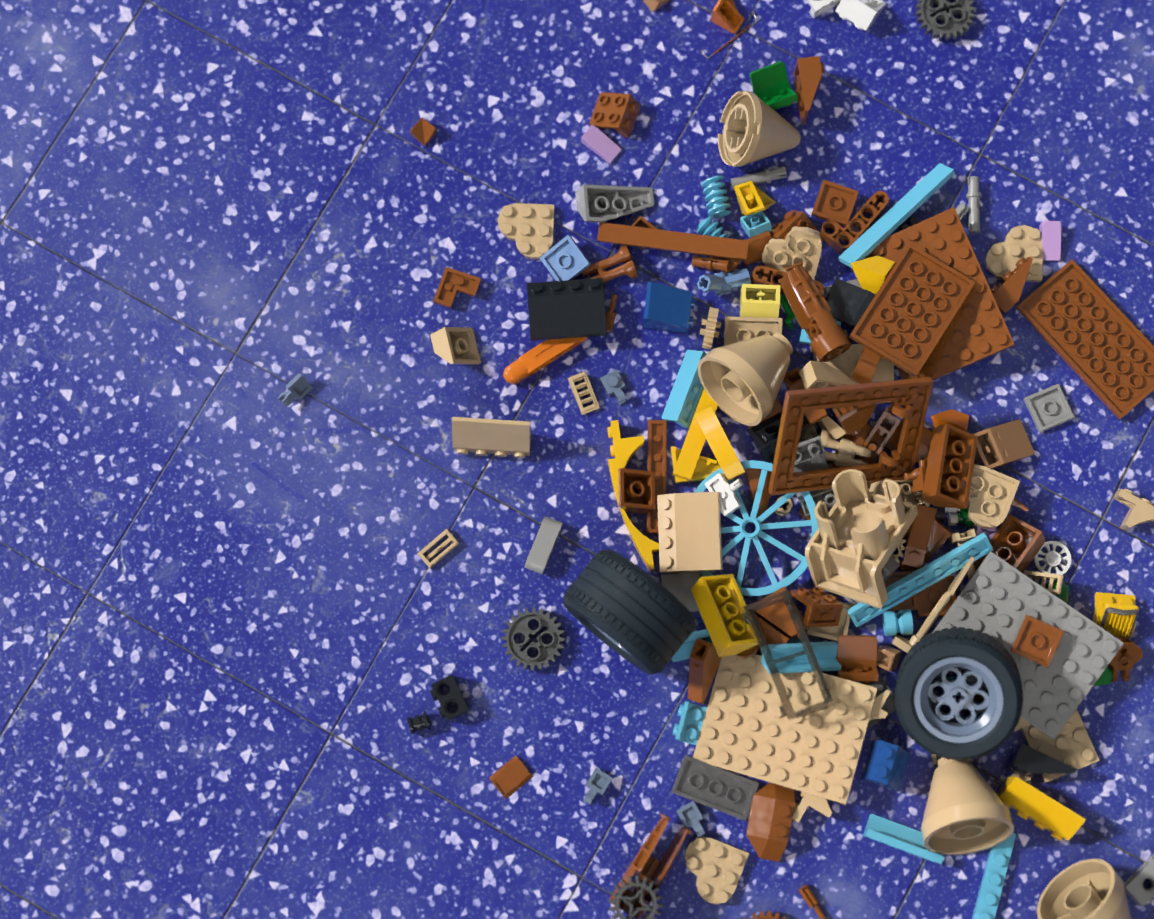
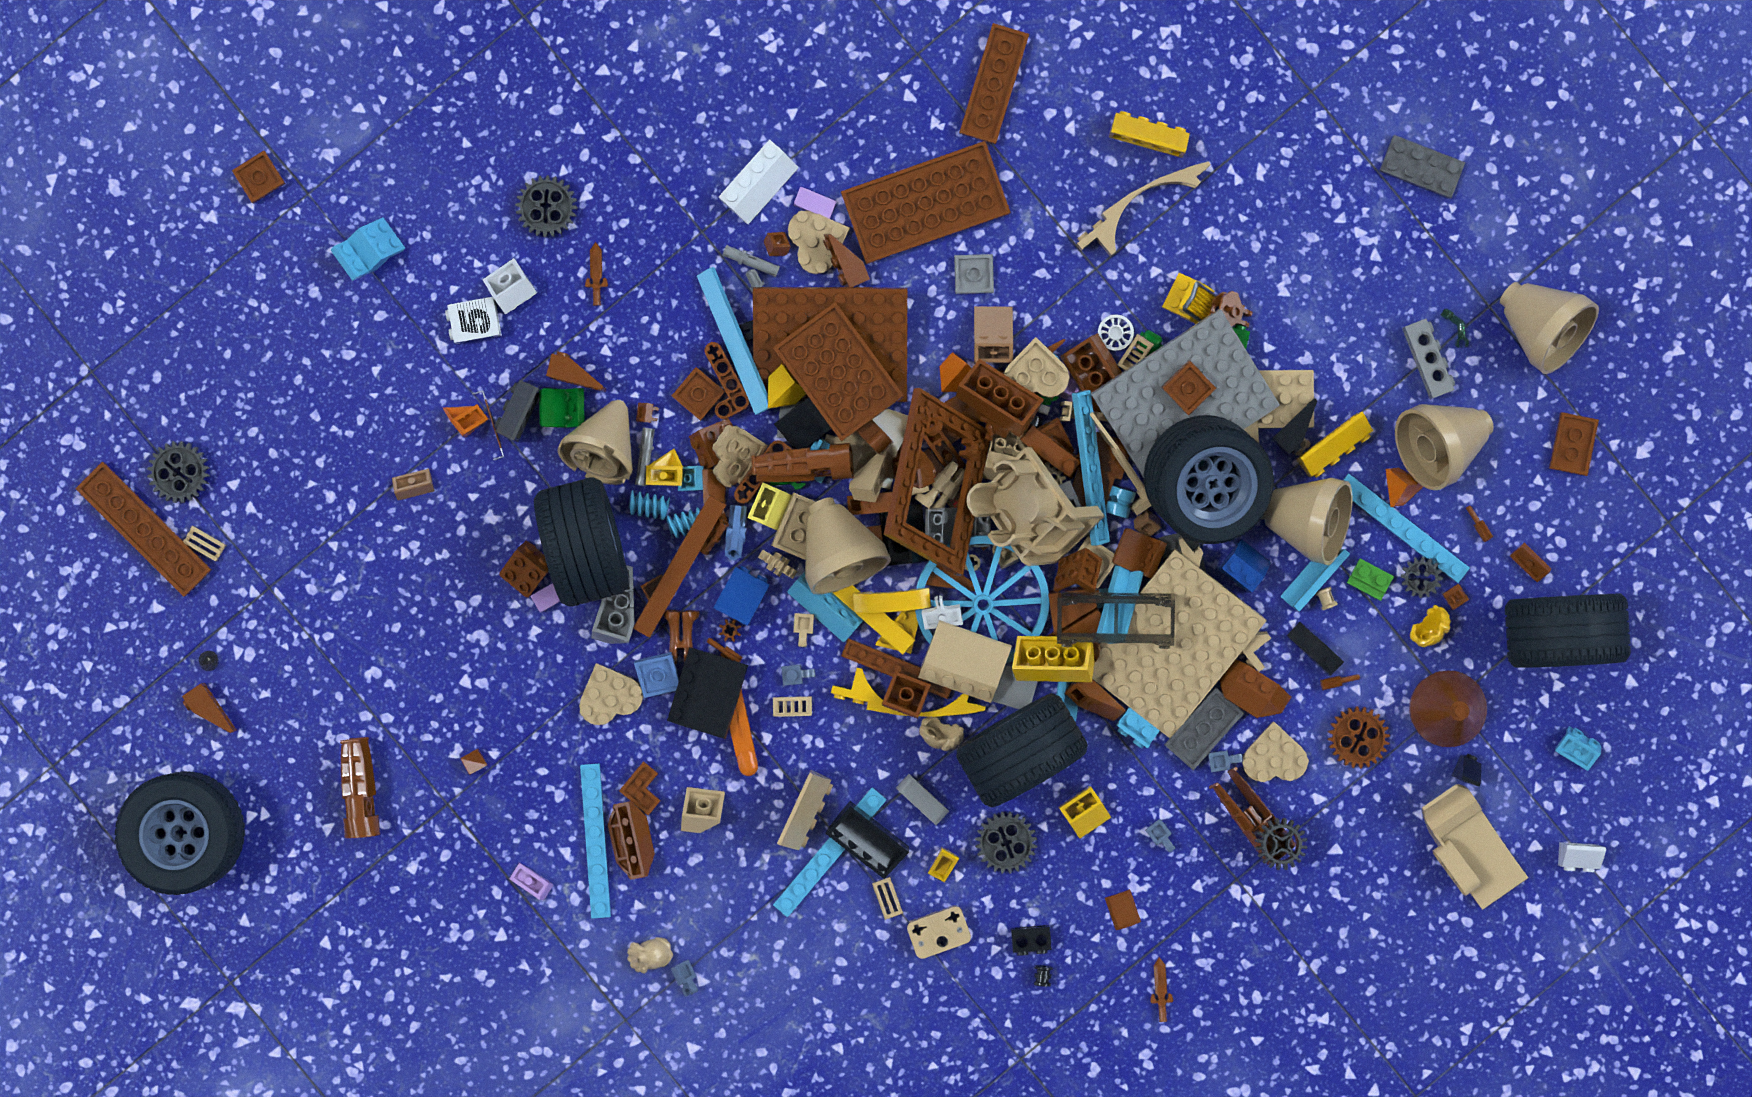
camera: 65 degrees left, 10 degrees up
(305, 351) = (649, 954): none -> tan hair
(332, 223) = (531, 882): none -> lavender slope
(361, 39) = (358, 789): none -> dark orange piece
(391, 265) = (595, 840): none -> medium azure plate
(405, 293) = (631, 840): none -> dark orange wedge
(430, 603) = (937, 925): none -> tan axle
(447, 843) = (1161, 989): none -> dark orange sword
(461, 479) = (822, 861): none -> medium azure plate
(486, 507) = (867, 840): none -> black slope
(489, 587) = (943, 864): none -> yellow slope
(590, 702) = (1084, 812): none -> yellow slope
(610, 535) = (941, 735): none -> tan hair
(632, 305) = (725, 628): none -> dark orange gear
(661, 138) = (580, 542): none -> black wheel
(661, 375) = (803, 625): none -> tan plate
(752, 53) = (517, 410): none -> dark grey slope
(799, 162) = (644, 413): none -> tile
(801, 536) = (1006, 558): none -> tan plate
(834, 867) = (1315, 649): none -> black slope
(888, 858) = (1326, 598): none -> tan bush
(902, 77) = (596, 274): none -> dark orange sword
(923, 895) = (1370, 579): none -> bright green plate
(999, 222) = (776, 244): none -> dark orange slope
(1025, 891) = (1401, 486): none -> orange slope
(1048, 184) = (758, 182): none -> white slope

